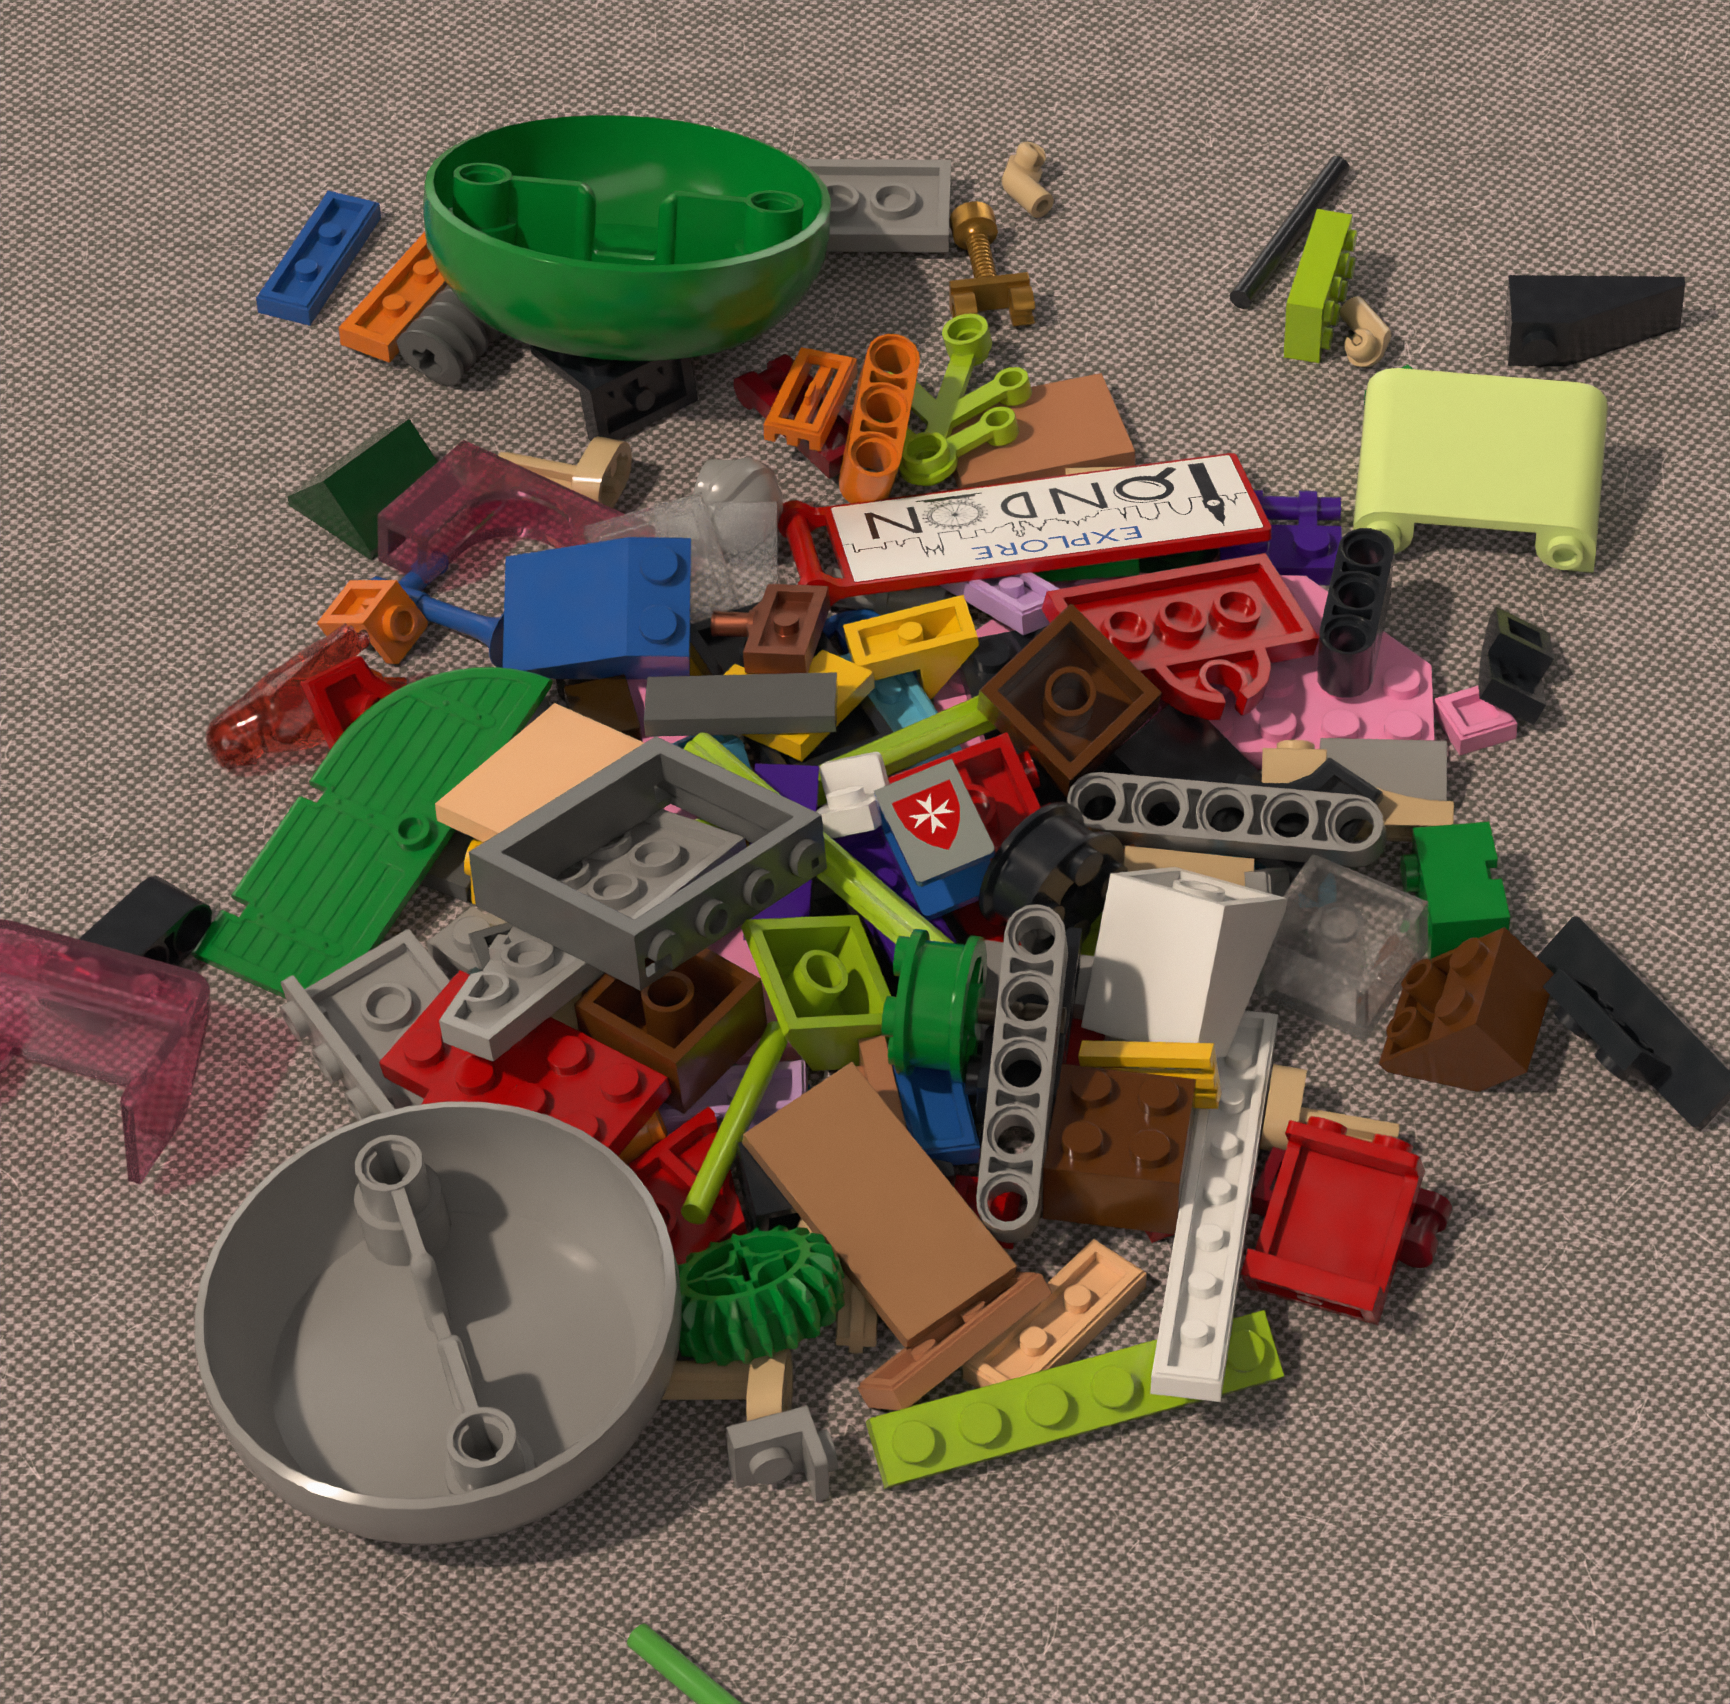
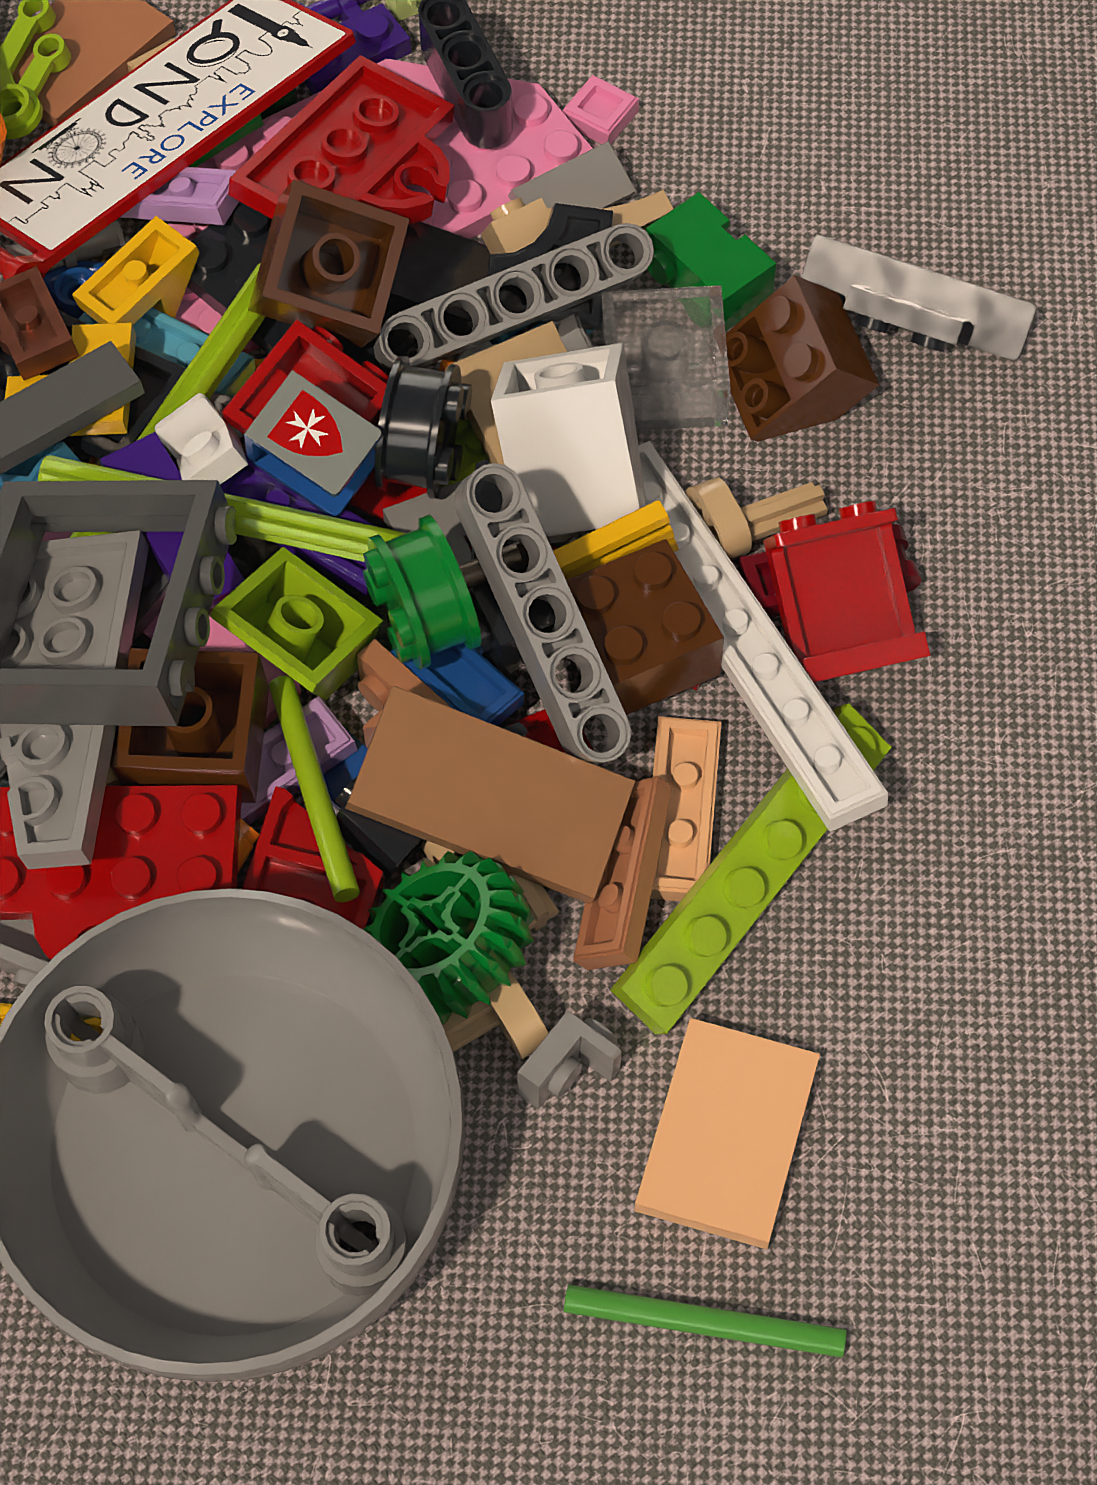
camera: 35 degrees left, 15 degrees up
(879, 1592) = (727, 1133): none -> light nougat tile
(1513, 665) = (600, 53): black slope -> none

